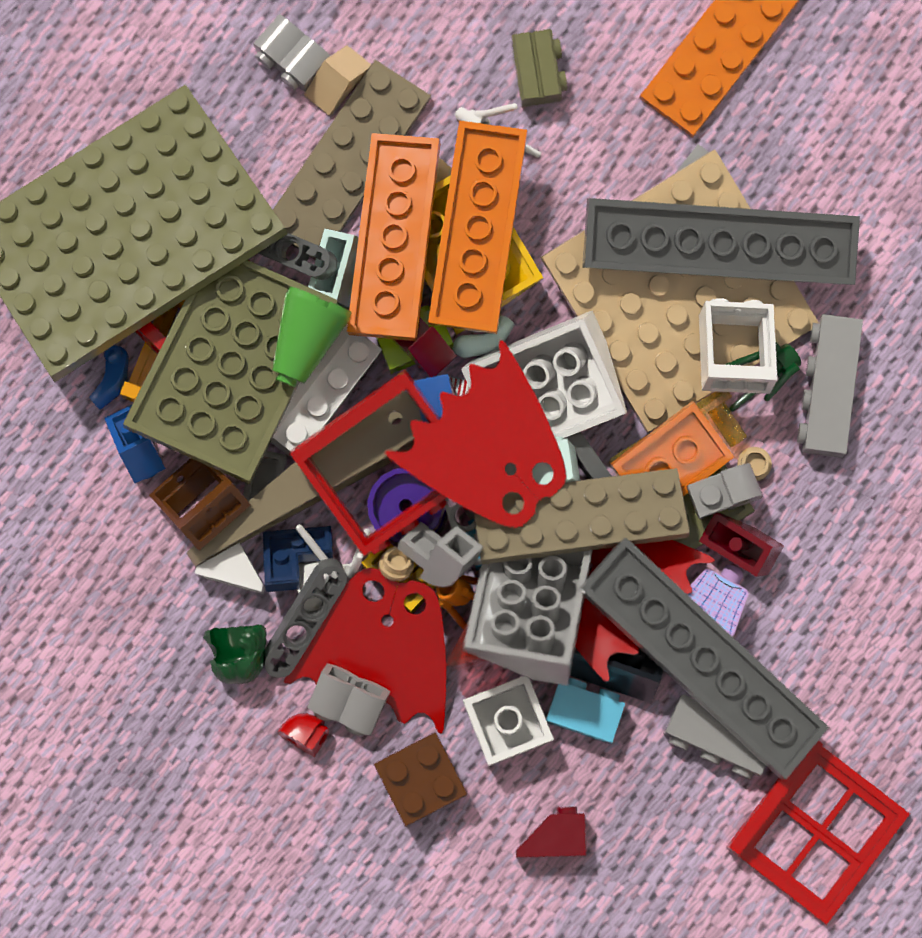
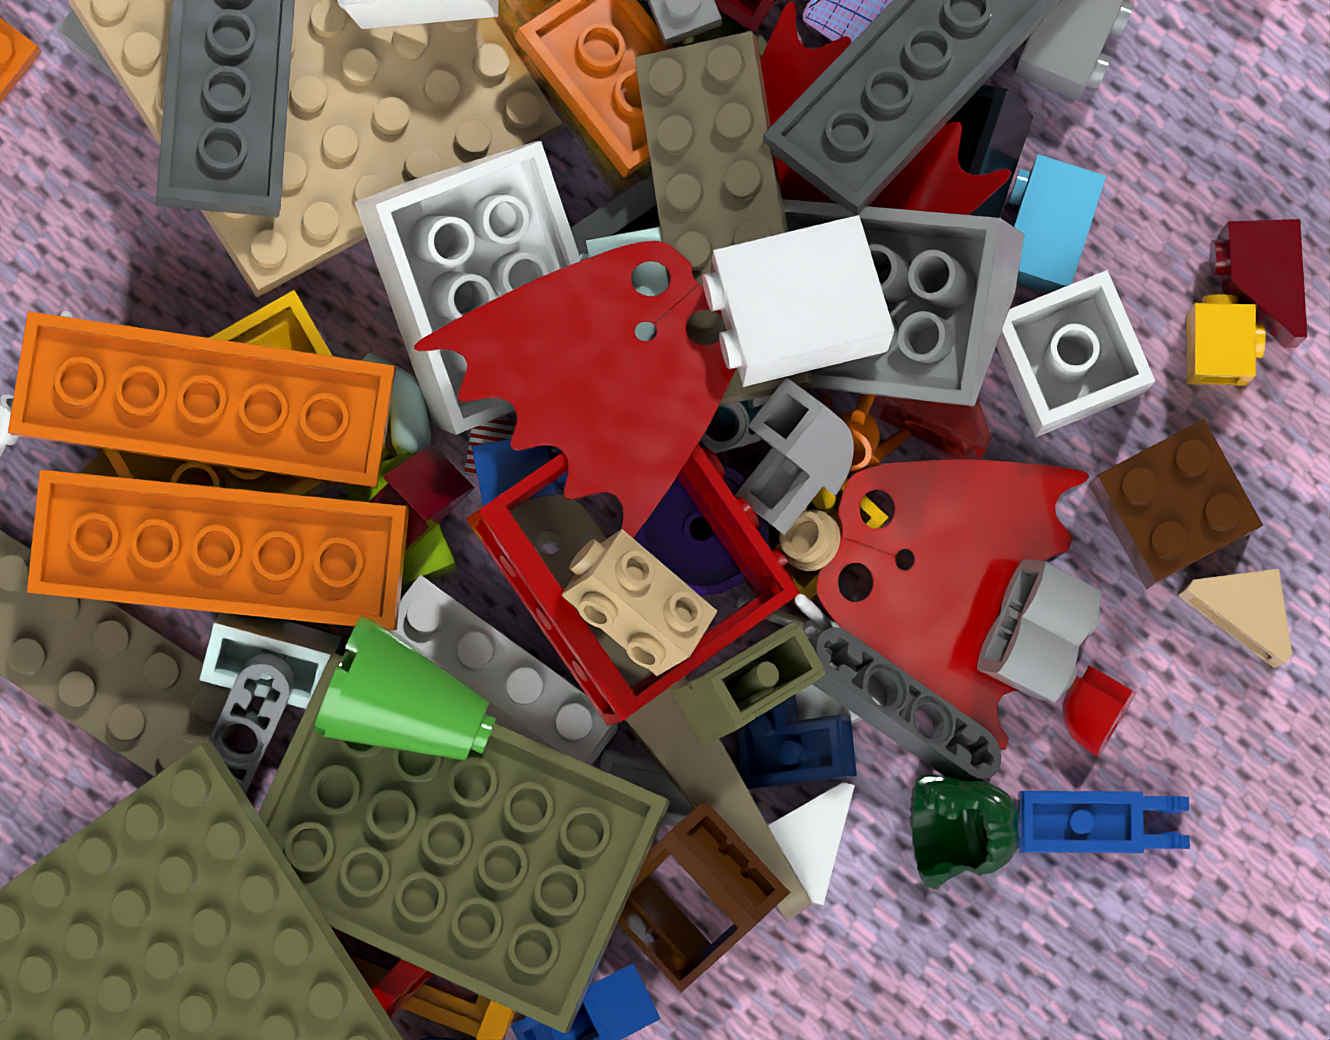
camera: 90 degrees left, 0 degrees up
(240, 730) = (1094, 822): none -> blue hinge
(313, 528) = (749, 683): none -> olive brick
(352, 459) = (637, 602): none -> tan brick
(360, 820) = (1247, 609): none -> tan slope
(517, 811) = (1223, 341): none -> yellow brick
(523, 551) = (798, 301): none -> white brick

